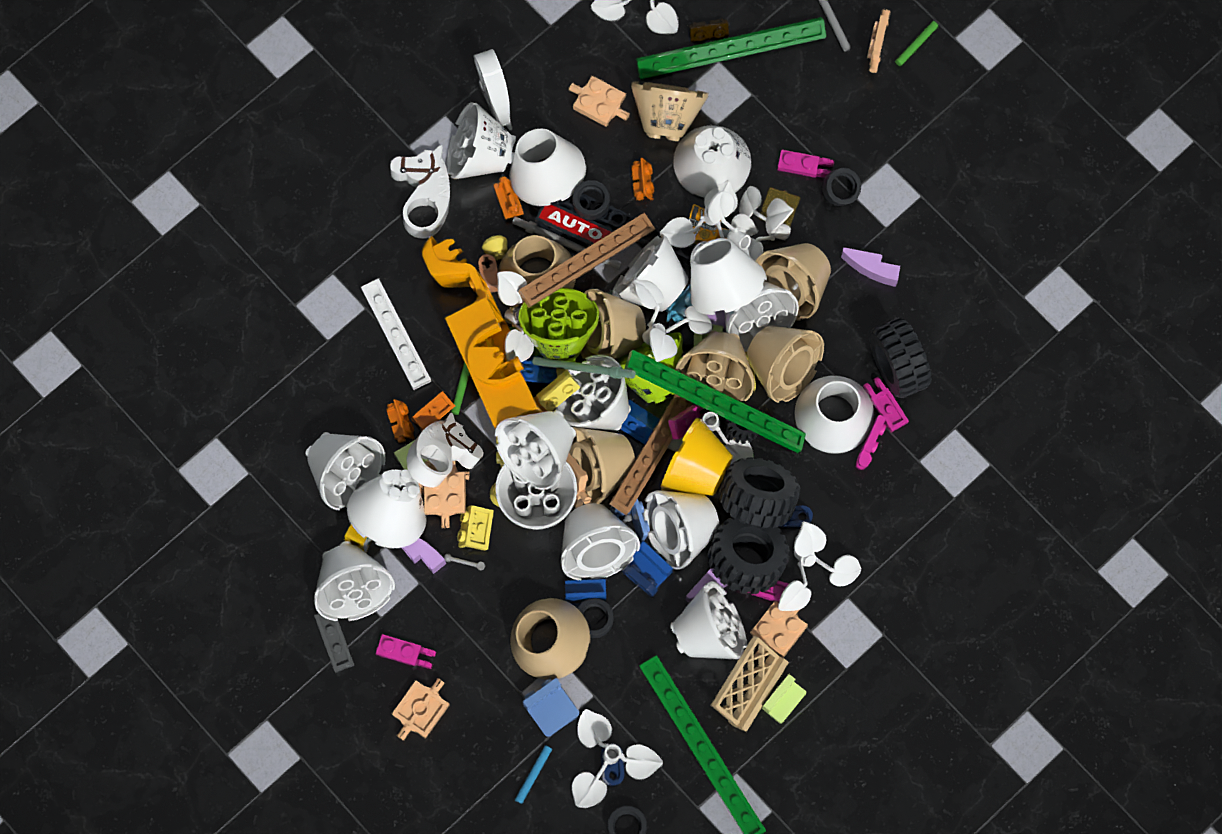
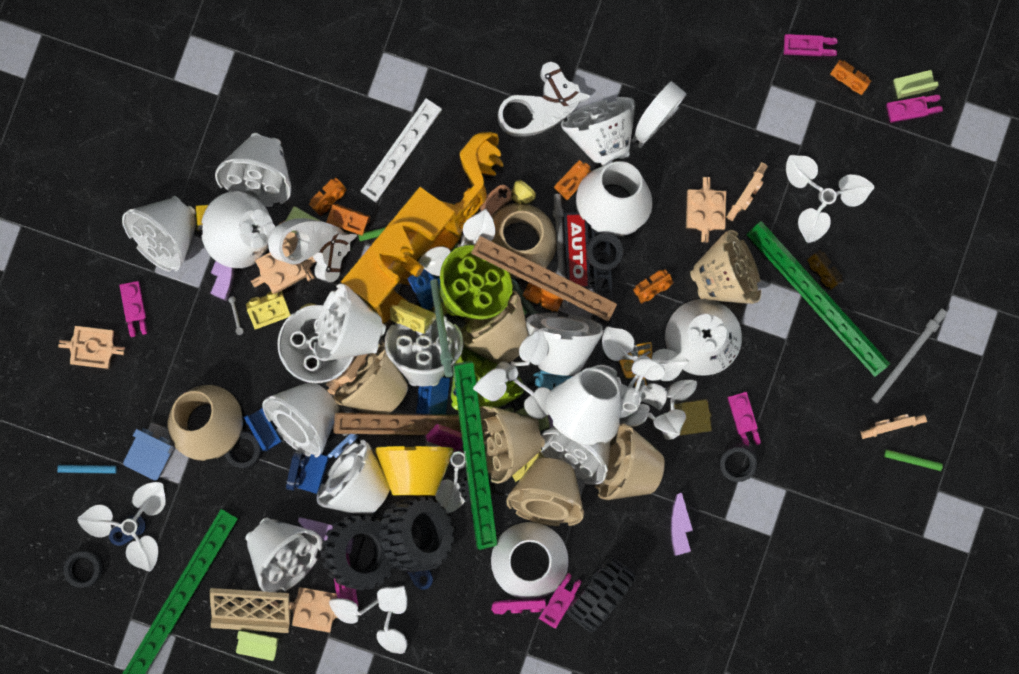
camera: 65 degrees right, 10 degrees up
(334, 643) = (110, 248): dark grey tile -> none
(600, 276) = (542, 296): none -> orange hinge
(603, 53) = (752, 187): none -> light nougat plate

